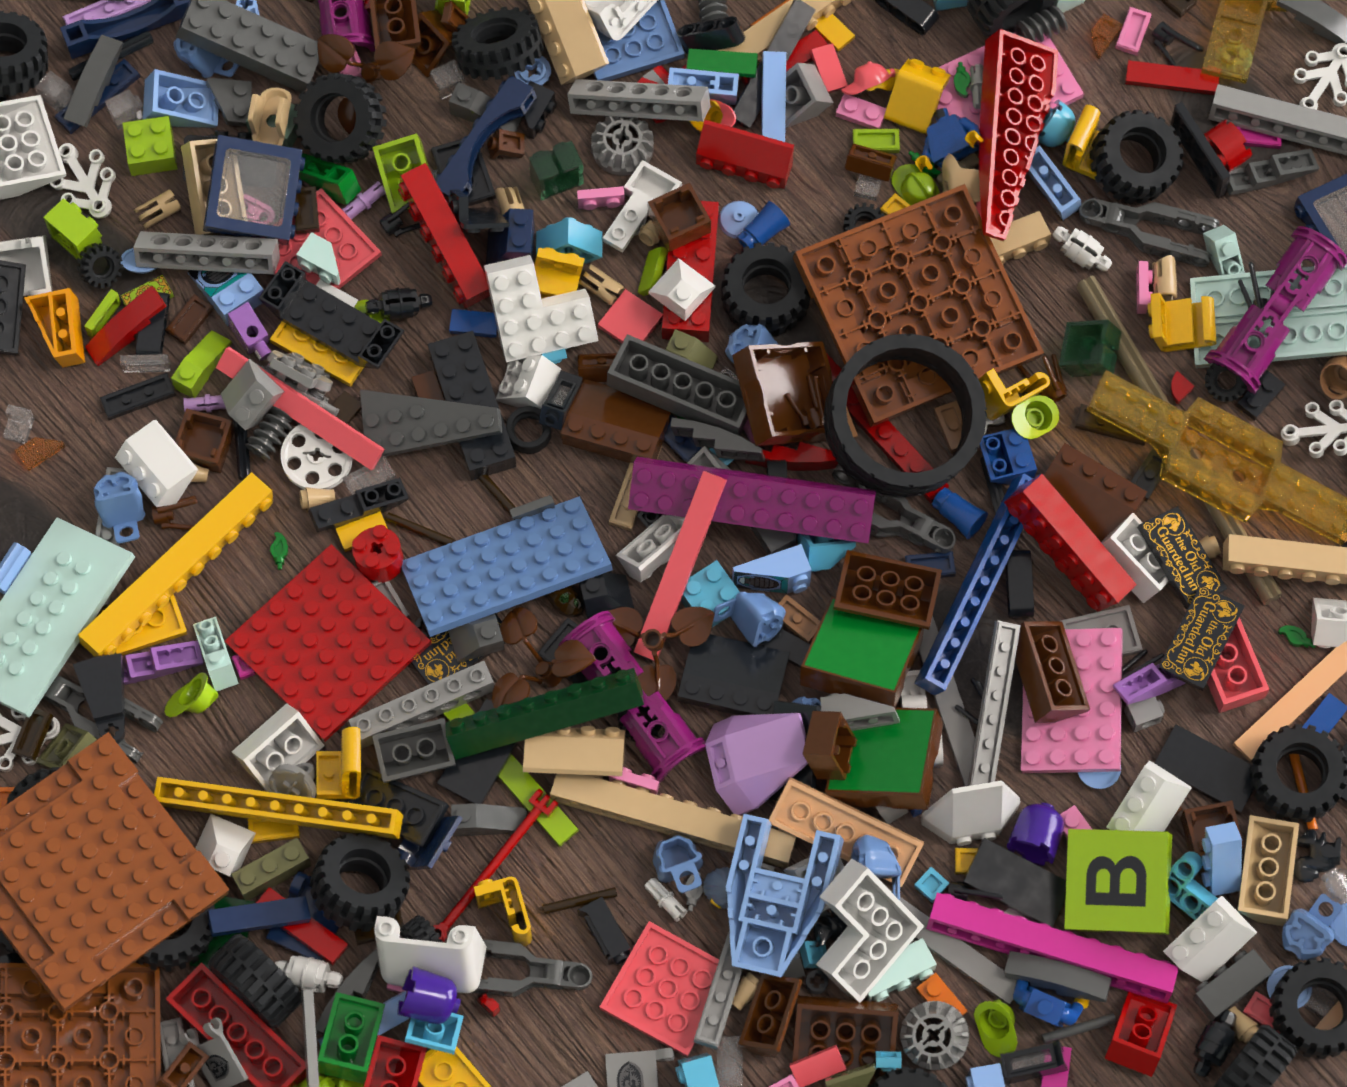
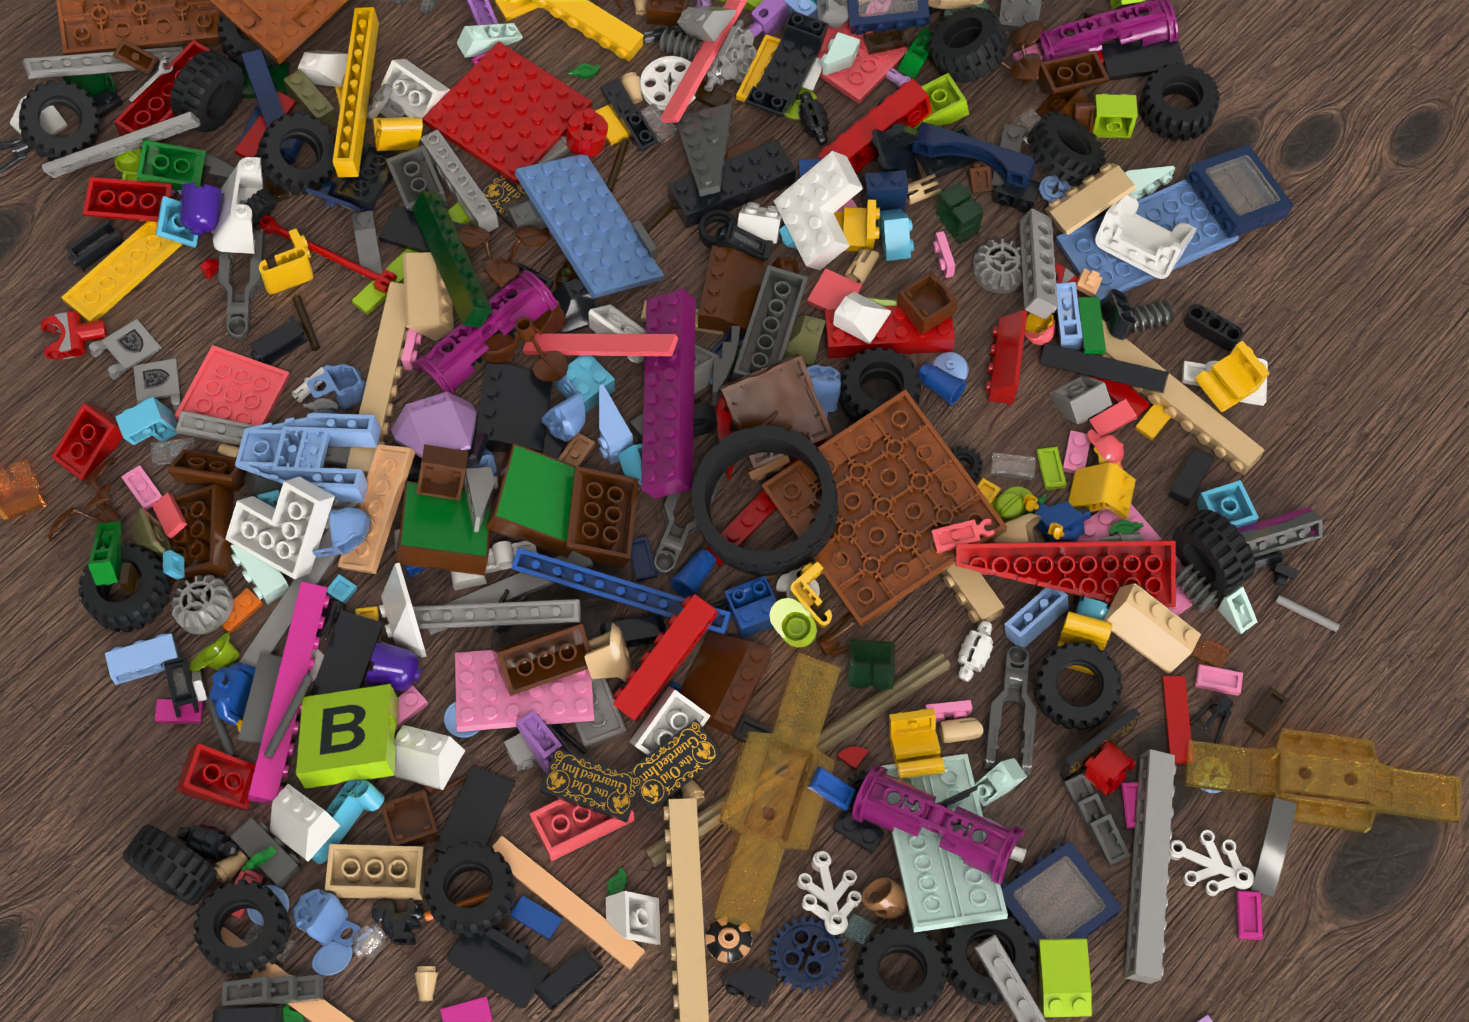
camera: 80 degrees right, 5 degrees down
(192, 697) = (447, 28): lime piece -> none
(310, 973) = (225, 136): white piece -> none
(644, 185) = (962, 284): white plate -> none
(665, 57) = (1088, 282): none -> light nougat tile
(773, 95) = (1069, 373): light blue tile -> none
(870, 162) = (1024, 460): reddish brown slope -> none
(970, 229) = (961, 533): none -> coral plate
(1032, 1041) = (199, 685): none -> light grey tile
(1051, 602) = (609, 656): none -> tan piece
(1082, 76) = (1151, 627): none -> tan slope
(1088, 944) = (288, 716): none -> dark grey bar
(1222, 858) = (377, 822): light blue brick -> none
(1227, 404) = (831, 788): none -> blue tile
(1247, 984) = (259, 858): none -> green piece

